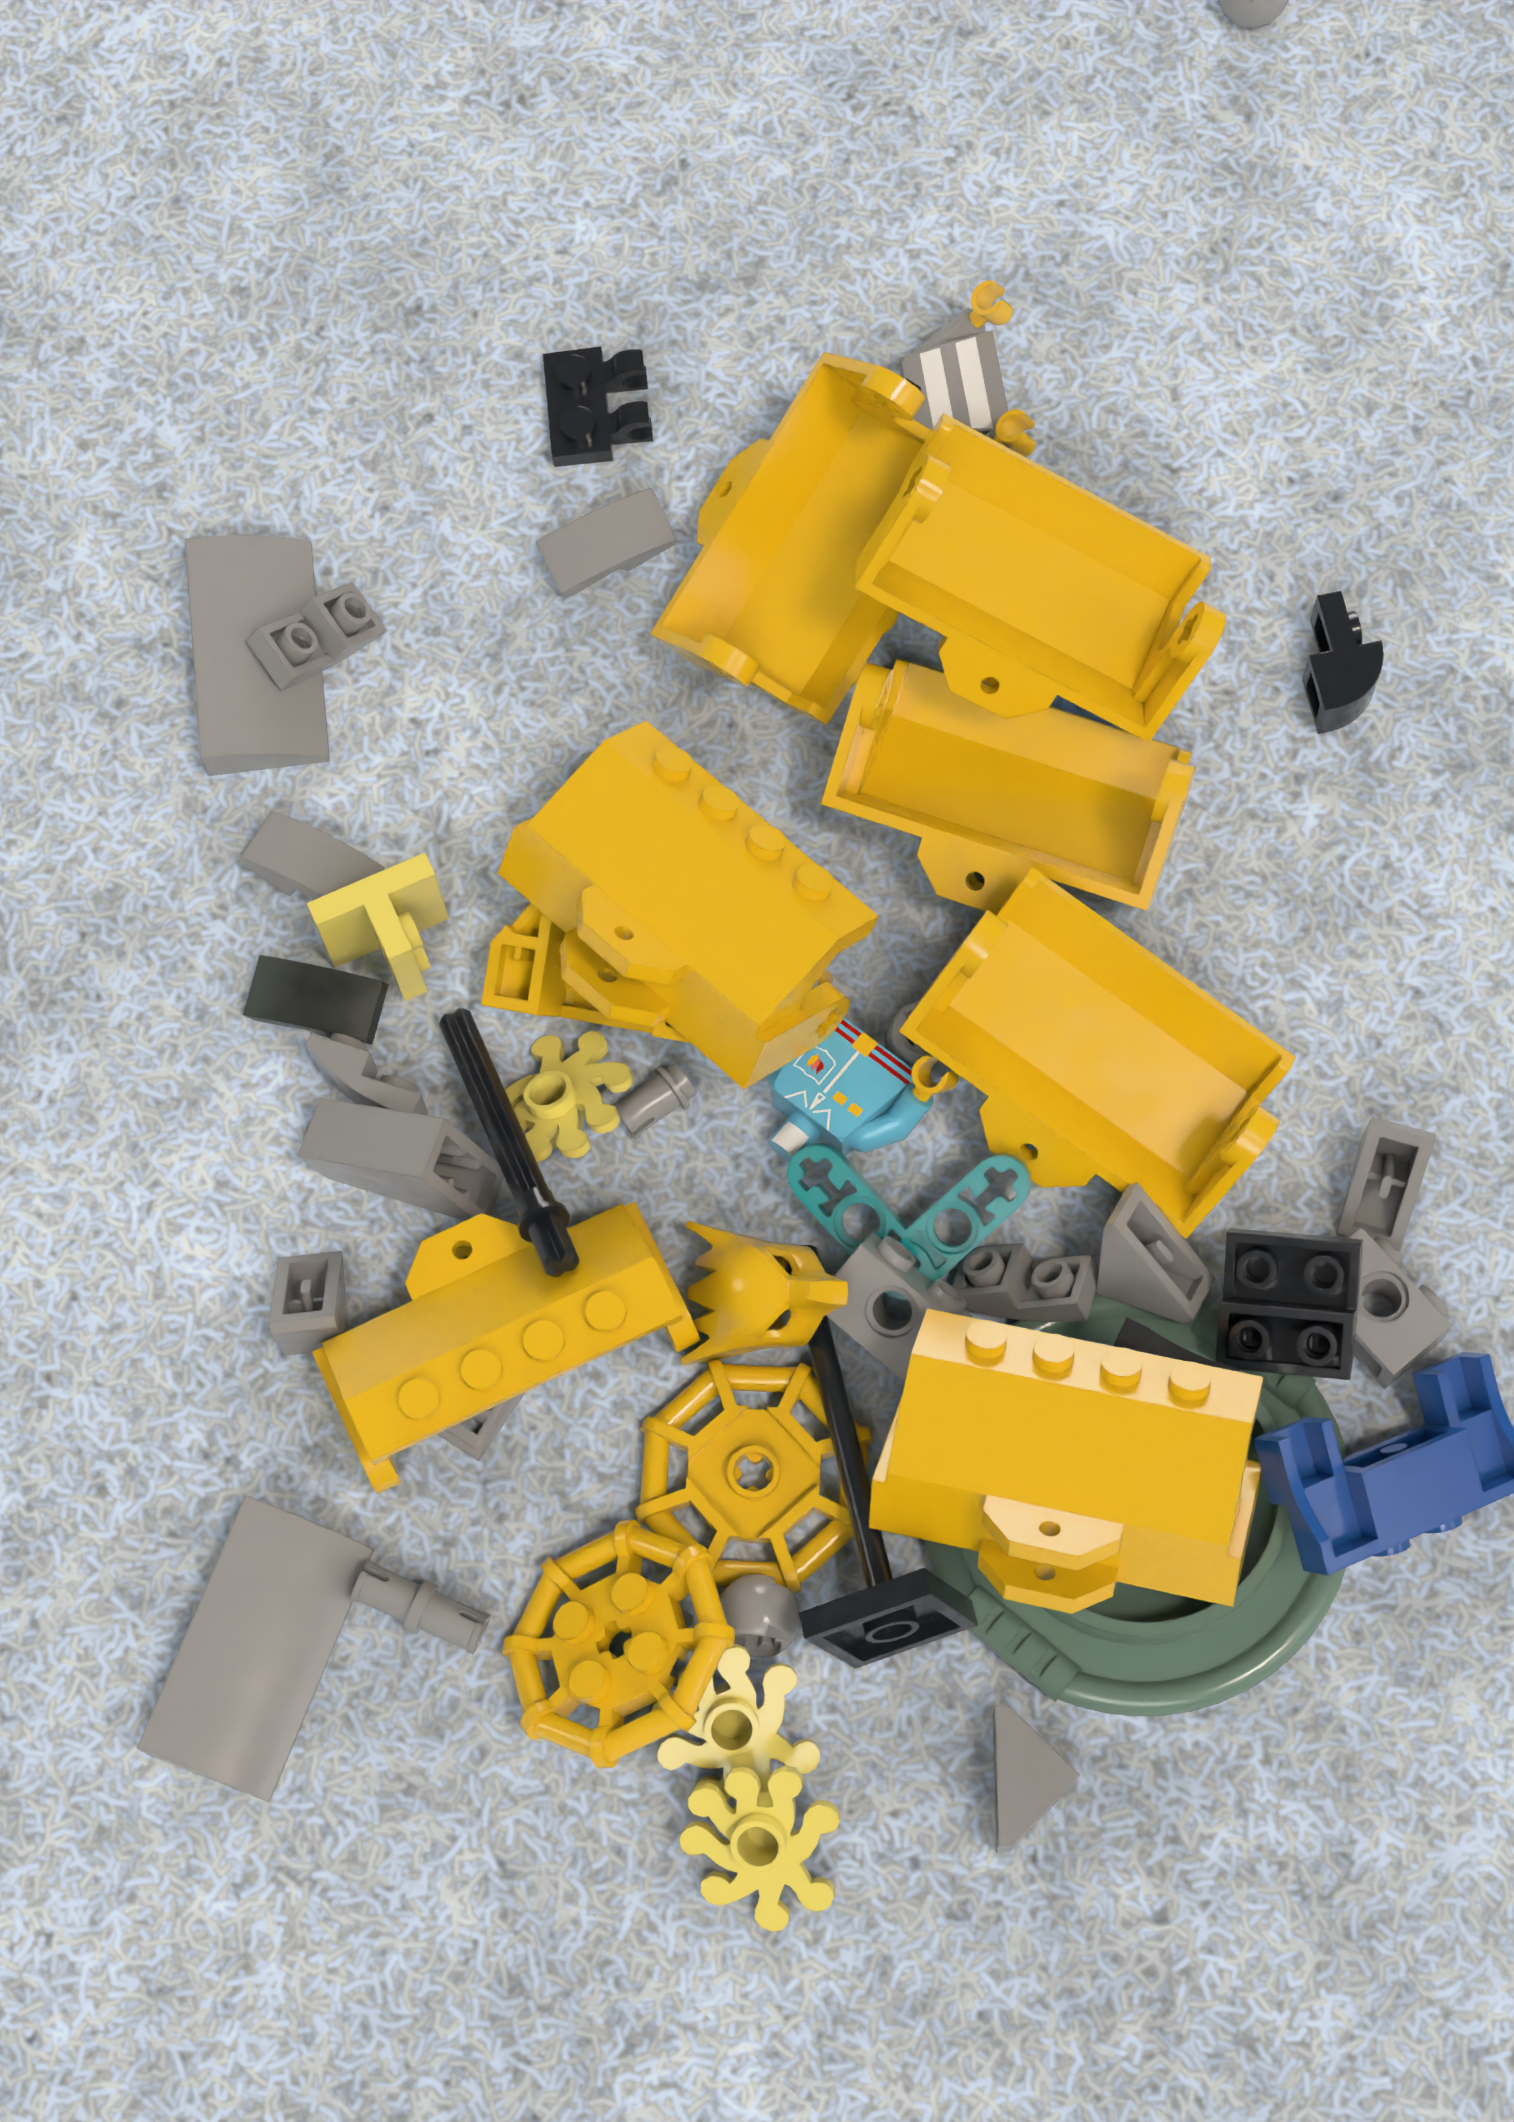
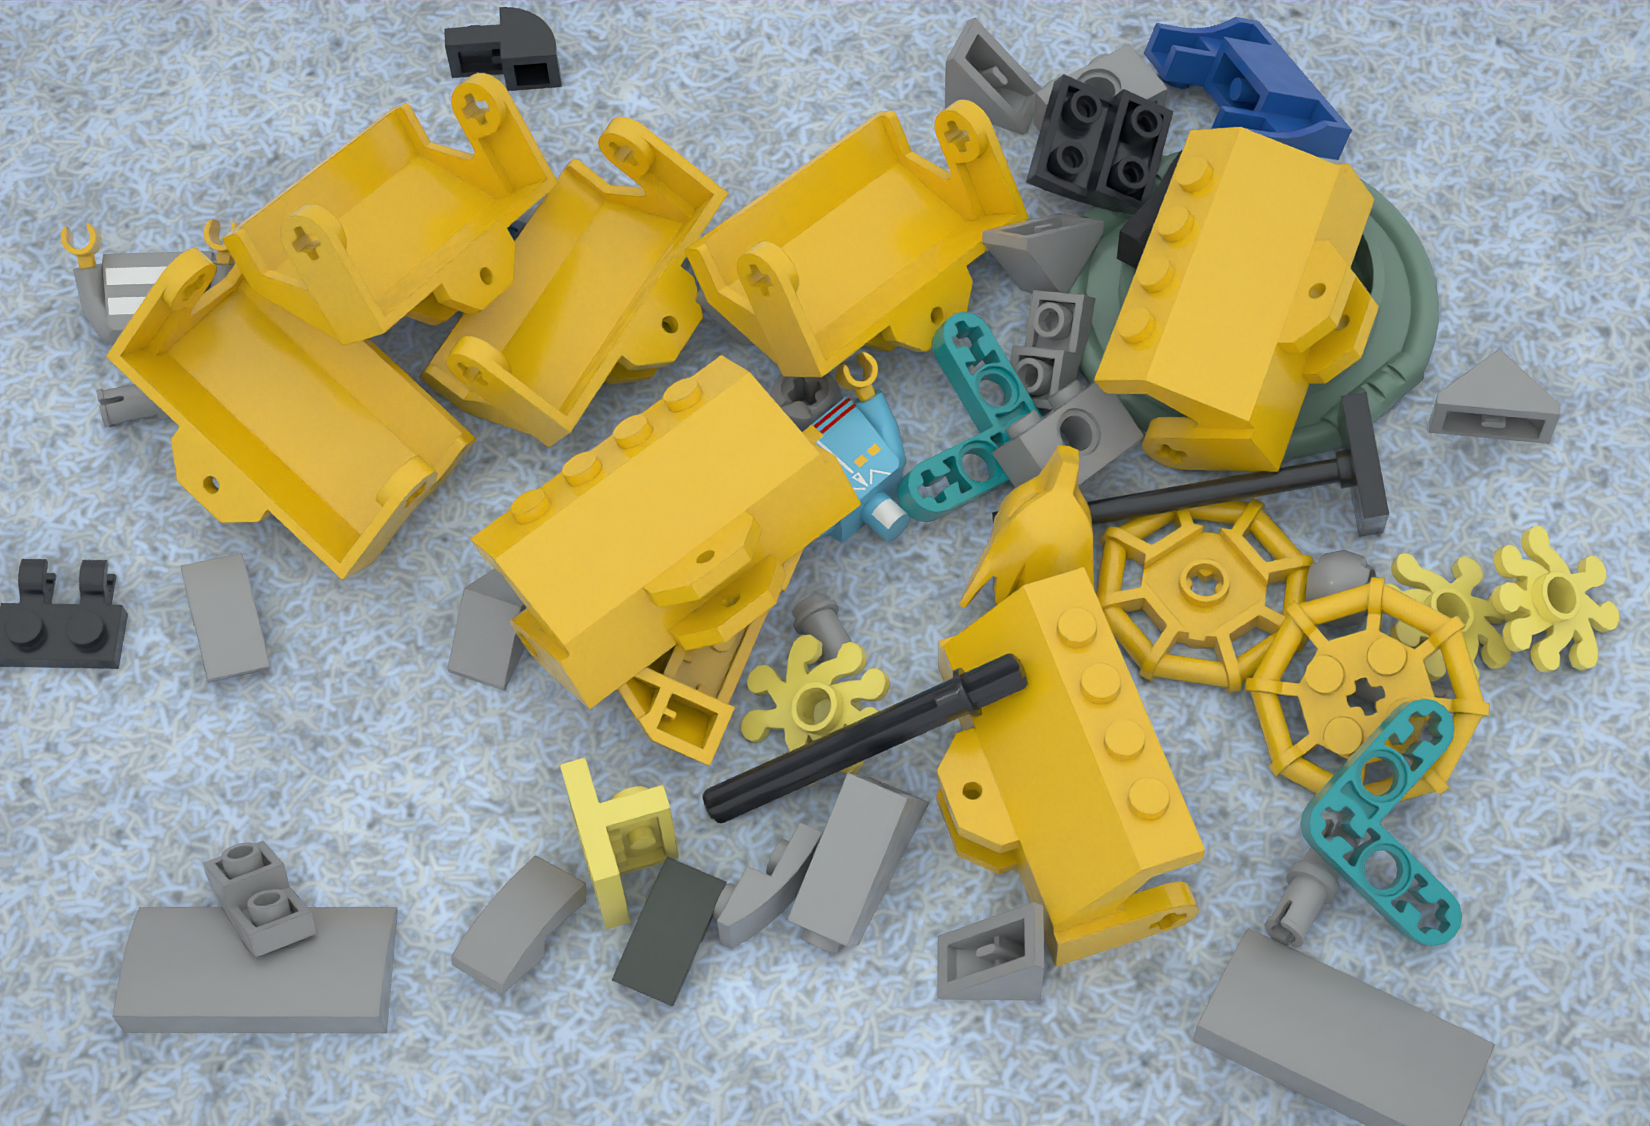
camera: 85 degrees left, 10 degrees down
(475, 1645) = (1366, 812): none -> teal beam

